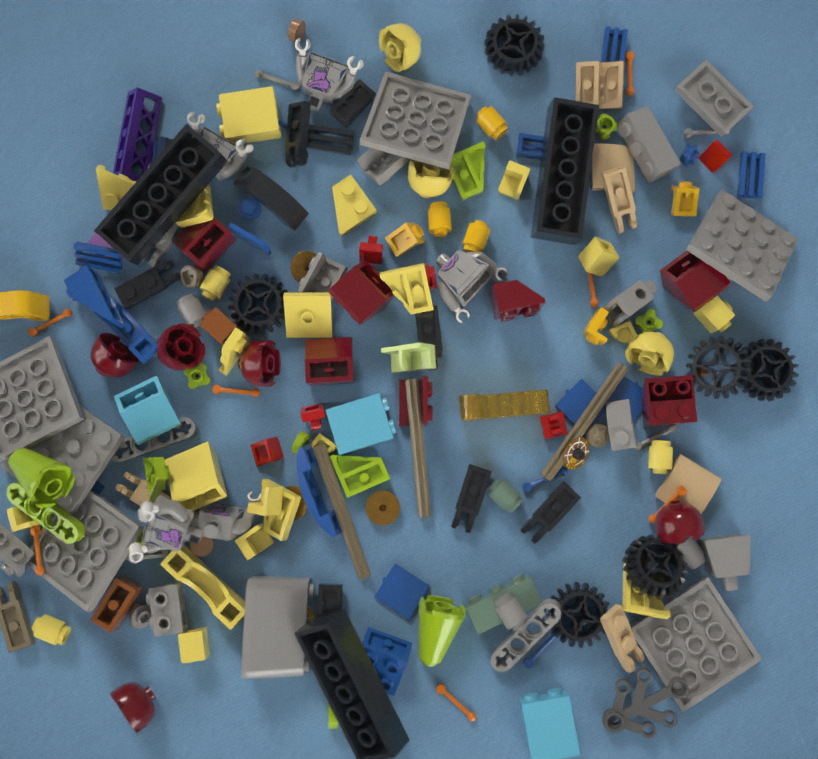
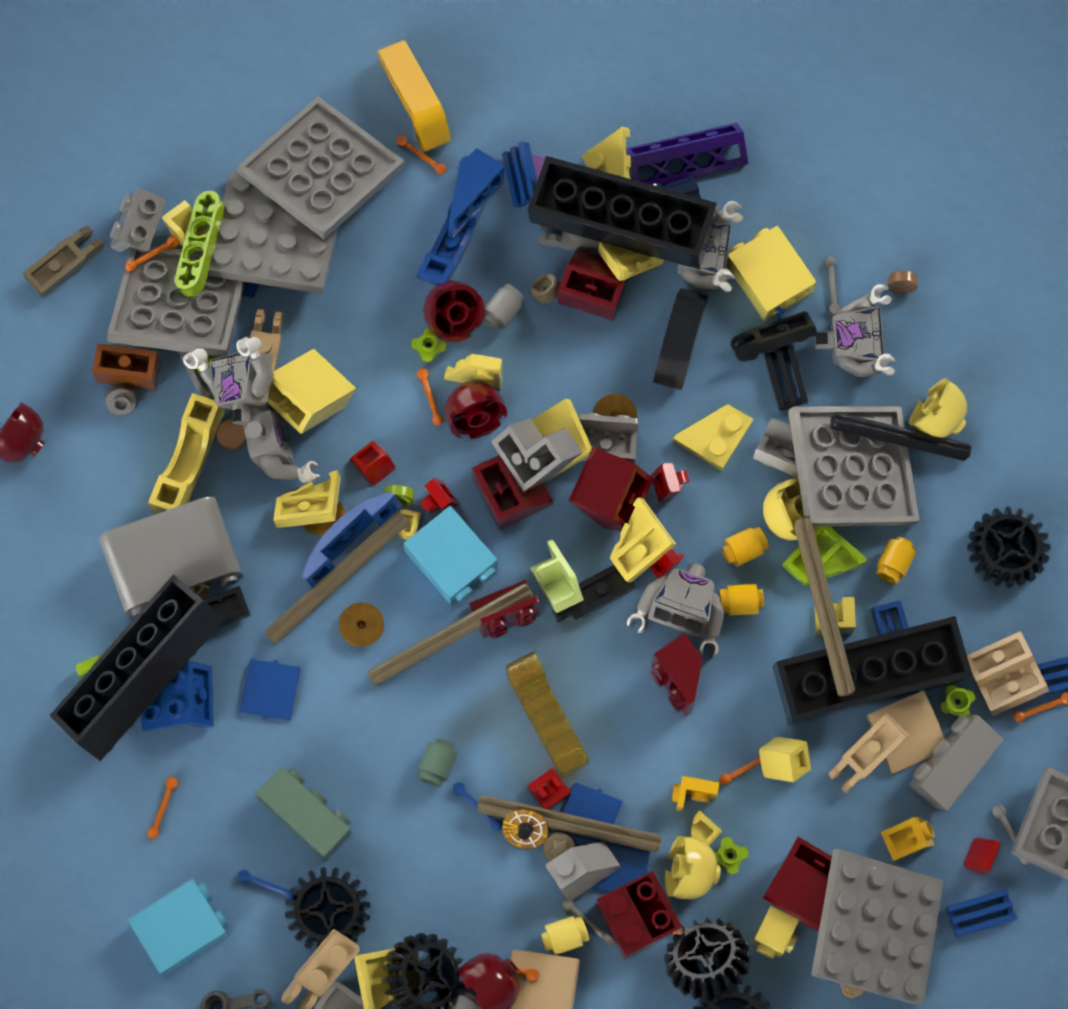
camera: 65 degrees right, 10 degrees down
(41, 477) = (238, 221): lime cone -> none
(51, 630) = (66, 308): light yellow brick -> none
(111, 356) = (410, 239): dark red cylinder -> none
(146, 285) = (512, 242): black hinge -> none
(147, 410) = (364, 305): medium azure slope -> none
(155, 444) = (333, 326): light grey beam -> none
(156, 475) = (292, 346): lime wing -> none
(167, 609) = (141, 426): light grey brick -> none
(194, 645) = (112, 473): light yellow panel -> none
(215, 283) = (548, 318): light yellow brick -> none
(218, 325) = (498, 341): dark orange brick -> none
(249, 208) = (656, 320): blue plate -> none
(250, 239) = (618, 337): blue piece -> none
(252, 310) = (534, 373): black gear -> none
(254, 541) = (259, 491): light yellow panel -> none
(270, 501) = (314, 488): light yellow panel -> none
(317, 337) = (531, 456): none -> light grey brick
(353, 103) = (843, 385): black plate -> none
(359, 472) = (392, 579): lime wing -> none
(405, 238) = (703, 516): yellow bracket -> none
(408, 80) = (900, 436): none -> black axle
(437, 627) = (243, 744): lime cone -> none
(471, 495) = (419, 723): black hinge -> none
(510, 611) = (298, 816): light grey brick -> none
(513, 181) = (824, 607): none -> dark tan axle
(529, 638) = (277, 850): light grey beam -> none
(552, 510) = (442, 828): black hinge -> none
(629, 301) = (732, 813): light grey torso -> none
(689, 155) = (968, 821): blue plate -> none

